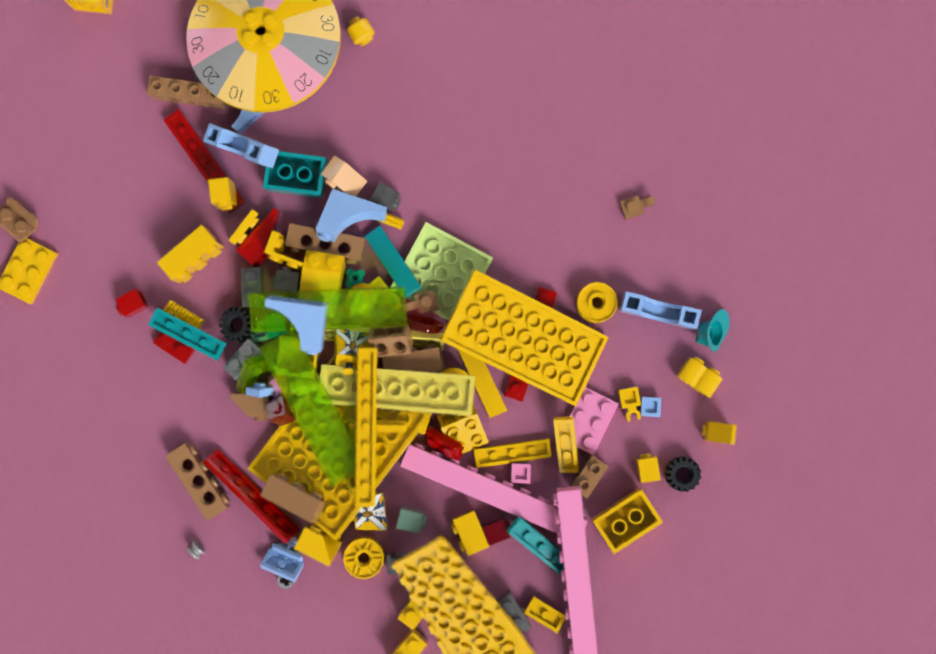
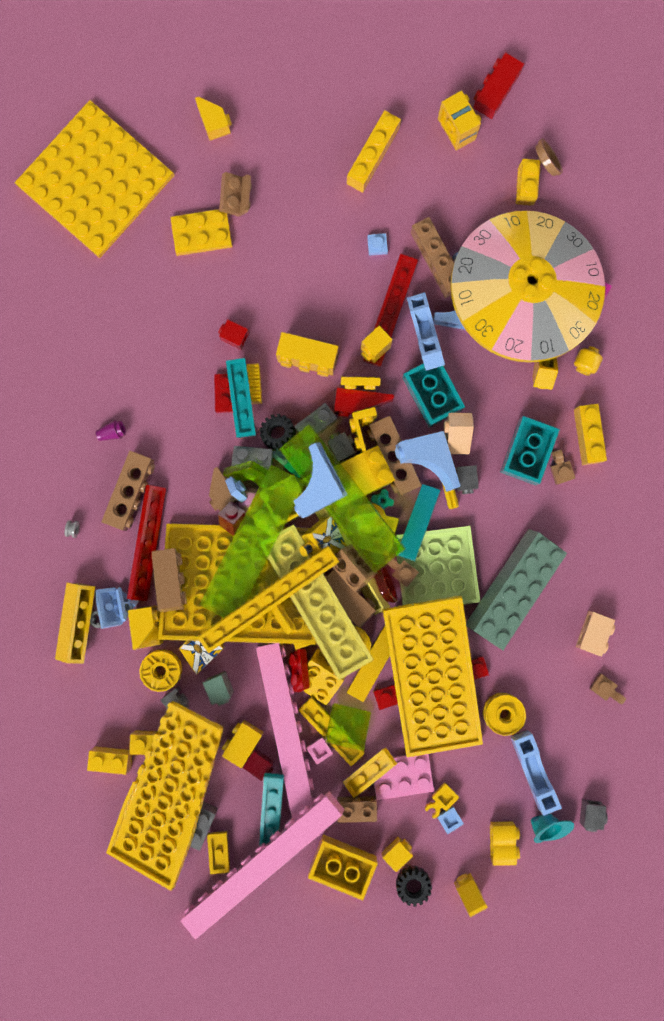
camera: 60 degrees right, 0 degrees up
(63, 82) = (373, 151): none -> yellow brick
(139, 459) = (111, 431): none -> magenta cone
(142, 133) = (377, 244): none -> light blue plate
(274, 601) = (75, 623): none -> yellow brick
(346, 73) = (545, 374): none -> yellow slope
(399, 130) = (529, 450): none -> teal brick
(421, 72) = (590, 434): none -> yellow brick
(434, 115) = (562, 470): none -> medium nougat plate
(502, 221) = (516, 588): none -> sand green brick
(517, 436) = (348, 727): none -> clear neon green plate
(584, 183) = (595, 633): none -> light nougat brick
(727, 289) = (593, 815): none -> flat silver brick

